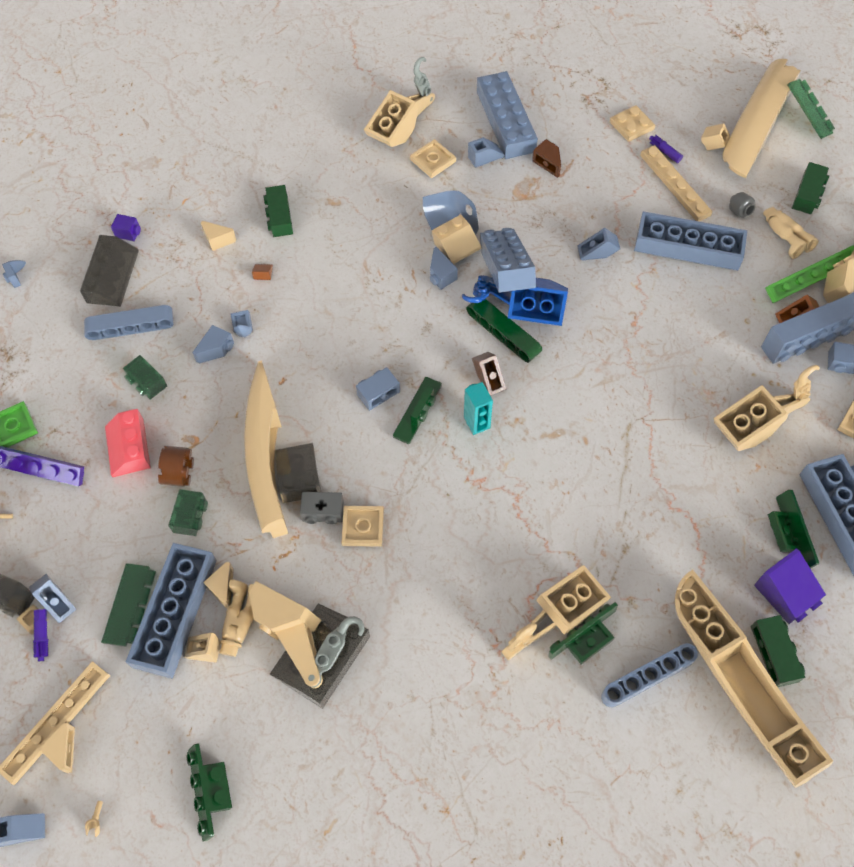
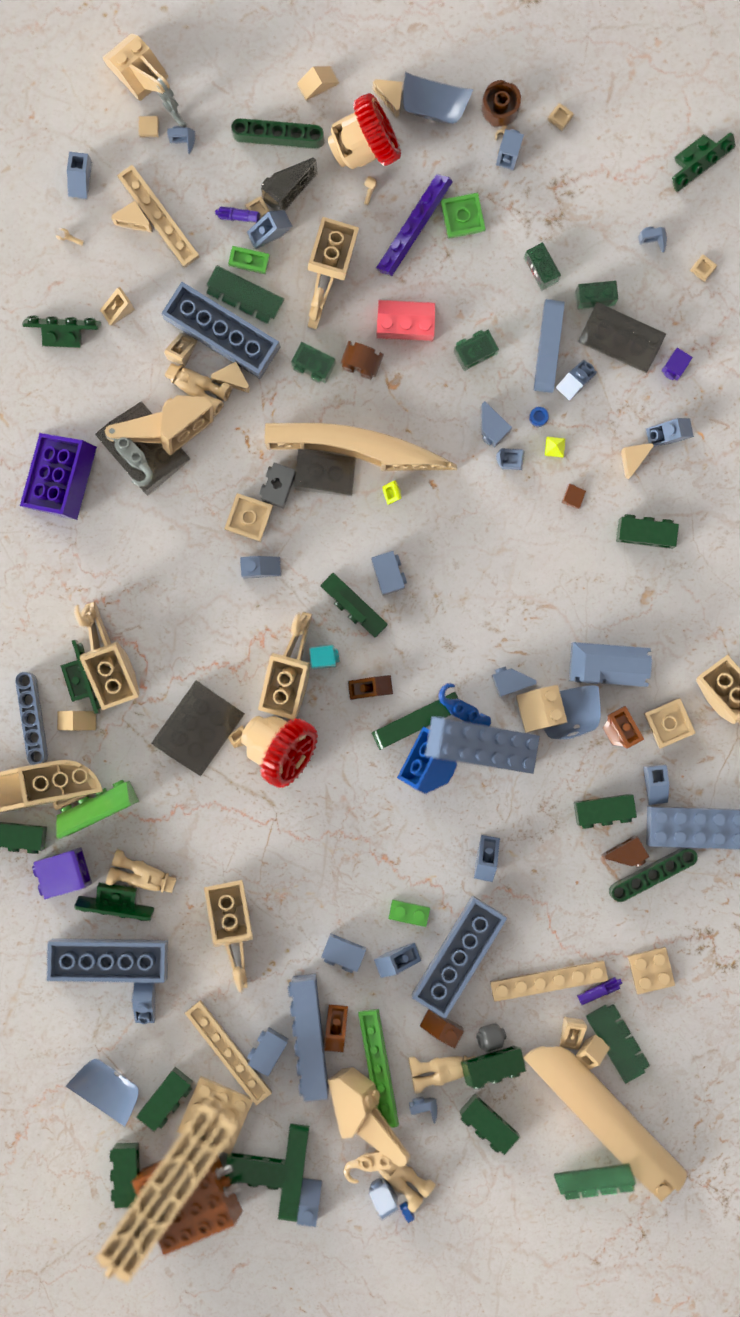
camera: 105 degrees right, 25 degrees up
(35, 233) = (703, 268): none -> tan tile
(53, 346) = (542, 266): none -> clear green brick
(71, 521) = (331, 258): none -> tan slope
(72, 298) = (601, 292): none -> clear green brick
(89, 609) = (248, 259): none -> bright green plate
(156, 292) = (576, 379): none -> slope
(167, 732) = (117, 307): none -> tan slope
(187, 217) = (670, 432): none -> sand blue slope
(197, 315) = (539, 416): none -> blue tile
(221, 297) = (555, 447): none -> neon yellow slope
(300, 408) = (392, 492): none -> neon yellow slope
(377, 737) = (58, 475): none -> dark purple slope
(400, 201) = (610, 664): none -> sand blue brick
(410, 501) = (260, 566): none -> sand blue slope
(450, 181) = (622, 729): none -> dark orange slope
(507, 437) = (287, 677): none -> tan slope
(521, 180) = (605, 810): none -> dark green brick
(568, 144) = (662, 874): none -> dark green beam
(577, 422) = (279, 747): none -> red piece
(580, 469) = (235, 737): none -> tan slope
(588, 510) = (198, 728): none -> clear smoke slope
(632, 630) = (76, 720): none -> tan slope
(672, 291) = (409, 913): none -> bright green plate
(690, 135) = (621, 1050): none -> clear green windscreen
(706, 155) = (572, 1033): none -> tan slope
(717, 566) = (95, 809): none -> bright green slope
(718, 285) = (397, 960): none -> sand blue slope
(732, 326) = (343, 953): none -> sand blue brick
(753, 512) = (143, 876): none -> tan piece
(755, 238) = (442, 1028): none -> reddish brown slope
(766, 193) = (493, 1067): none -> dark green brick
(825, 234) = (421, 1105): none -> sand blue plate

